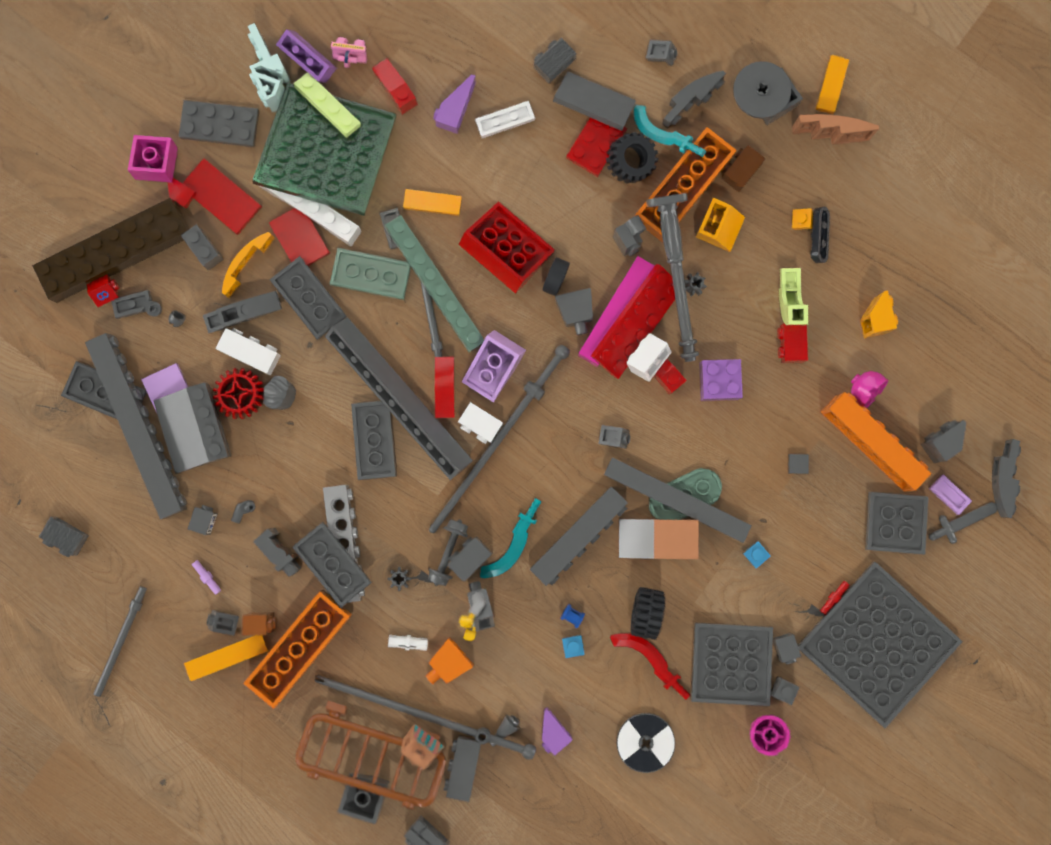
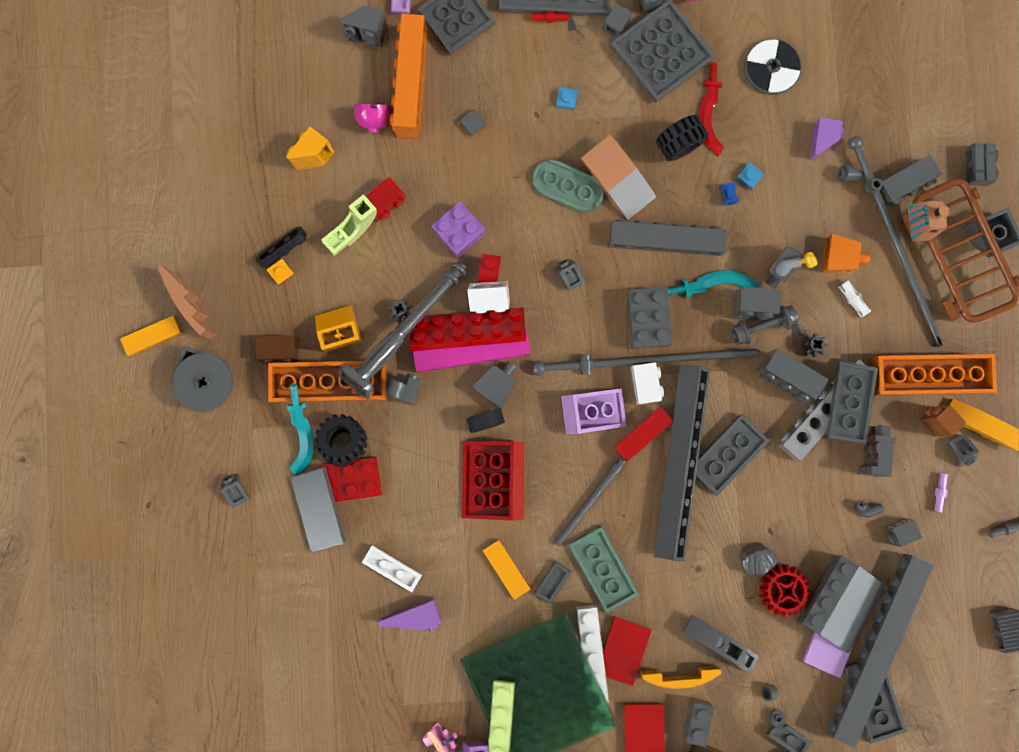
camera: 135 degrees left, 0 degrees up
(248, 350) = (746, 612): white brick -> none
(308, 297) = (664, 601): dark grey tile -> none
(391, 536) = (791, 376): none -> dark grey brick
(395, 86) = (438, 681): red slope -> none
(434, 283) = (569, 512): sand green plate -> none
(528, 467) = (649, 318): none -> dark grey brick
(554, 60) = (311, 569): dark grey brick -> none
(677, 500) = (577, 188): dark grey tile -> none
(696, 92) = (244, 435): dark grey slope -> none

